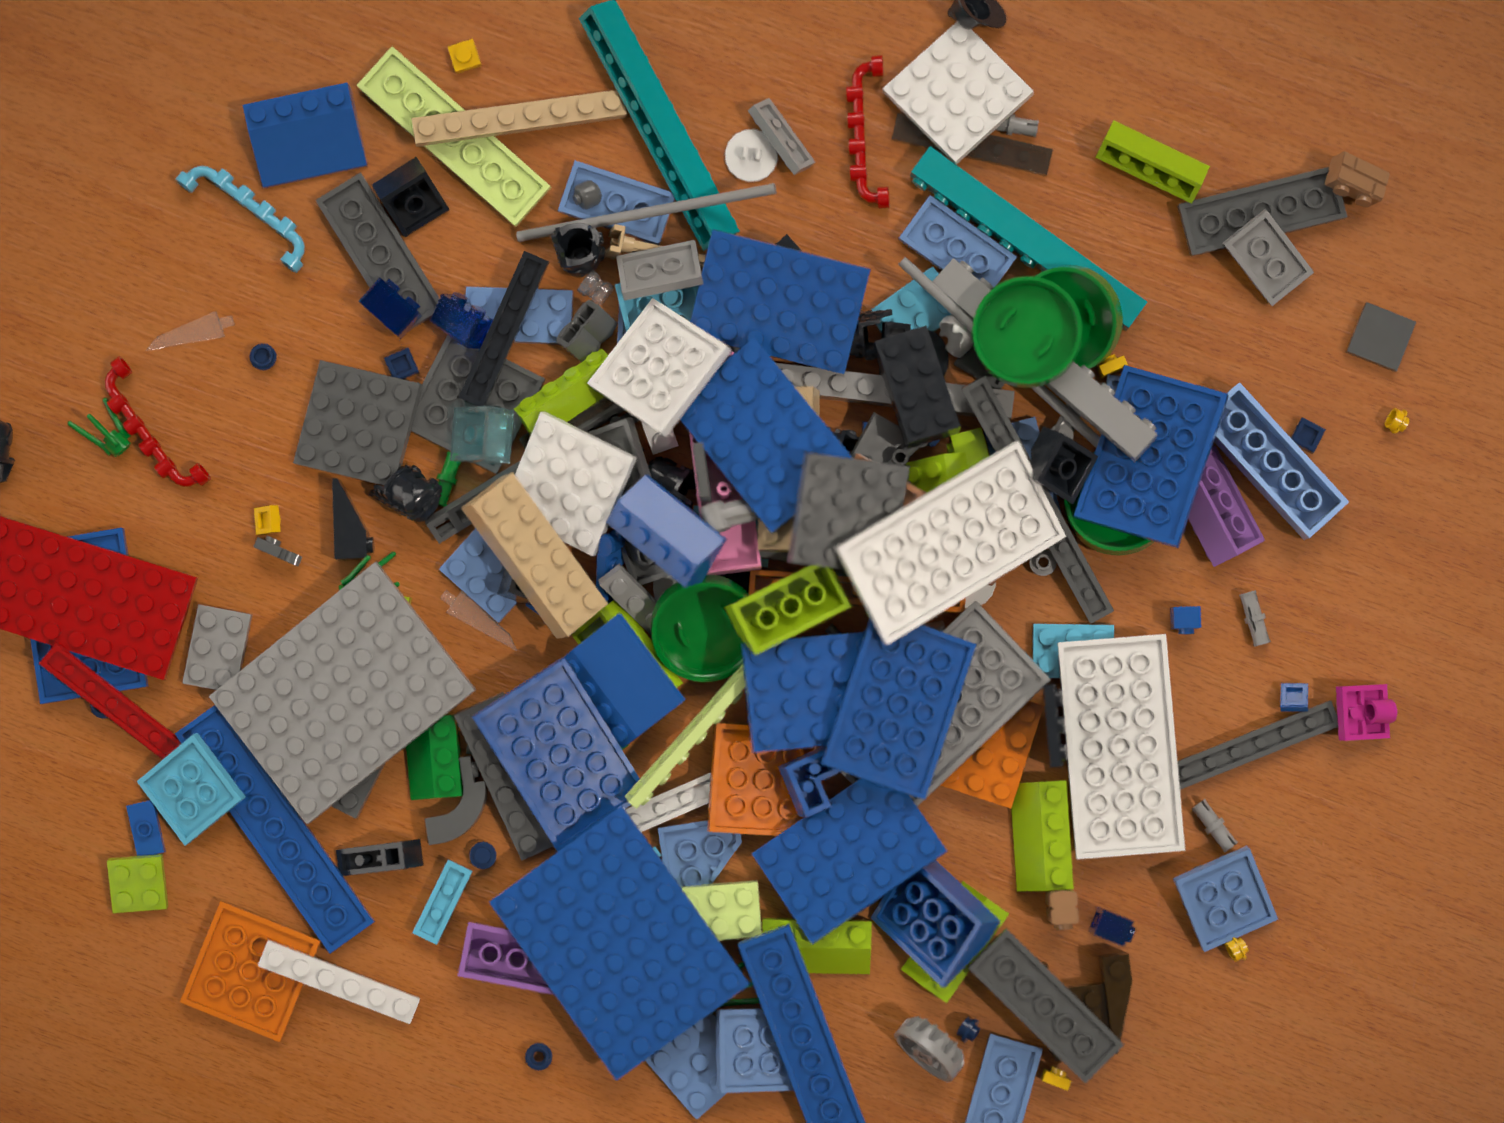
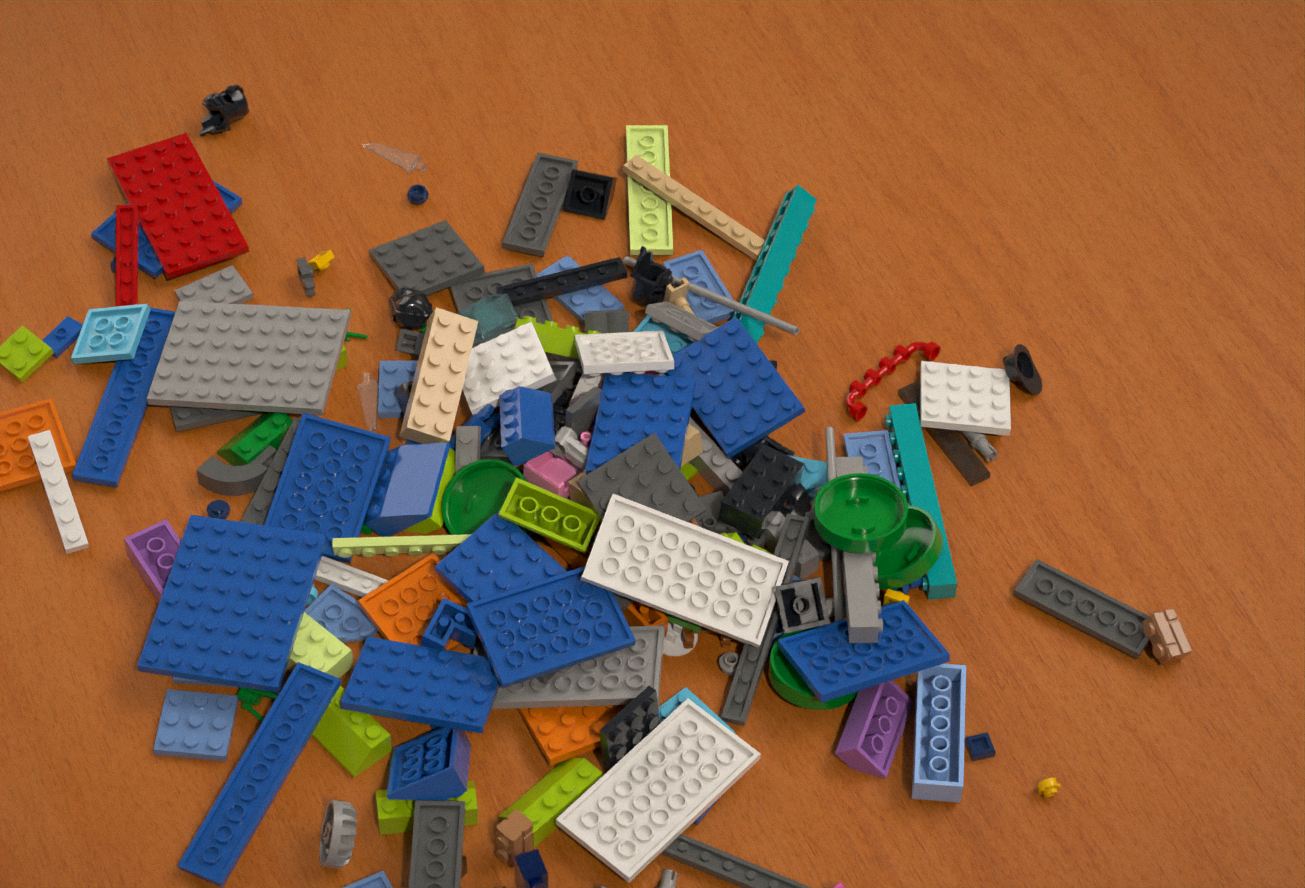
camera: 40 degrees right, 35 degrees down
(115, 441) = (290, 164): green plant -> none
(149, 444) = (311, 166): red bar -> none
(244, 197) = (502, 125): medium azure bar -> none
(305, 135) = (571, 123): blue slope -> none
(350, 533) = (360, 297): black slope -> none
(380, 857) = (165, 458): black slope -> none
(390, 307) = (513, 222): clear blue brick -> none
(402, 364) = (488, 259): dark blue tile -> none
(442, 901) = (167, 508): medium azure plate -> none
(461, 320) = (545, 258): clear blue brick -> none
(464, 56) = (701, 164): yellow plate -> none
(538, 1065) = (111, 628): dark blue plate -> none
(587, 194) = (688, 268): dark grey piece -> none
(595, 288) = (636, 311): clear wheel -> none
(748, 1053) = (226, 734): medium blue plate -> none
(750, 156) = (810, 336): white piece -> none
(781, 136) = (833, 335): light grey plate -> none
(968, 1030) = (373, 857): dark blue plate -> none
(1152, 161) = (1044, 523): lime brick -> none
(1185, 619) = (784, 767): blue plate -> none
(1254, 618) = (829, 809): light grey pin -> none
(1268, 257) = (1061, 628): light grey plate -> none
(1294, 697) = (803, 871): tile -> none
(1381, 337) = (1089, 737): dark grey tile -> none

